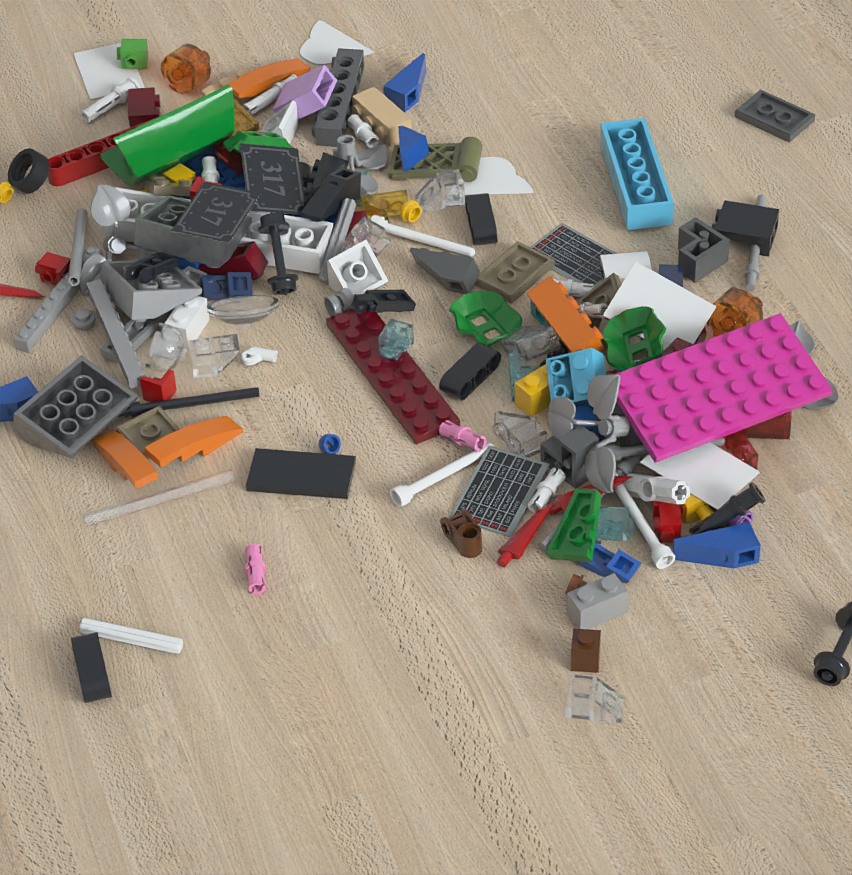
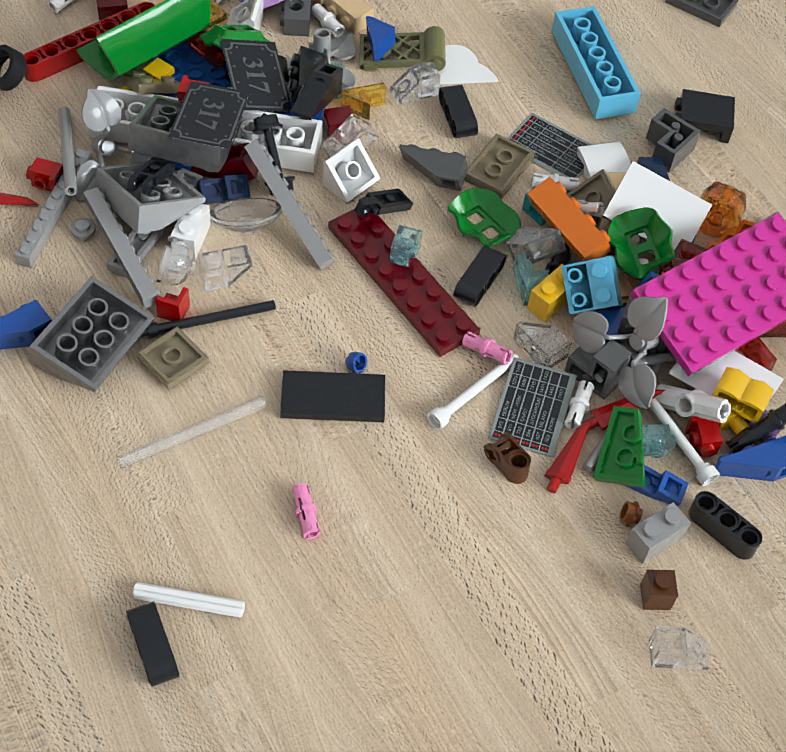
camera: 15 degrees left, 10 degrees up
(125, 458) = (152, 389): orange slope -> none
(190, 440) = (217, 365): orange slope -> none
(209, 170) = (188, 65): white pin -> none
(256, 354) = (266, 263): white arm -> none
(286, 299) = (289, 205): none -> light grey piece
(338, 236) = (327, 136): light grey axle -> none
(338, 303) = (339, 204): light grey wheel -> none
(410, 211) = (389, 104): yellow plate -> none
(423, 238) = (407, 132): white piece -> none
(668, 600) = (730, 537): none -> black beam
(708, 481) = (746, 395): none -> yellow brick
(752, 270) = (719, 158): light grey bar -> none

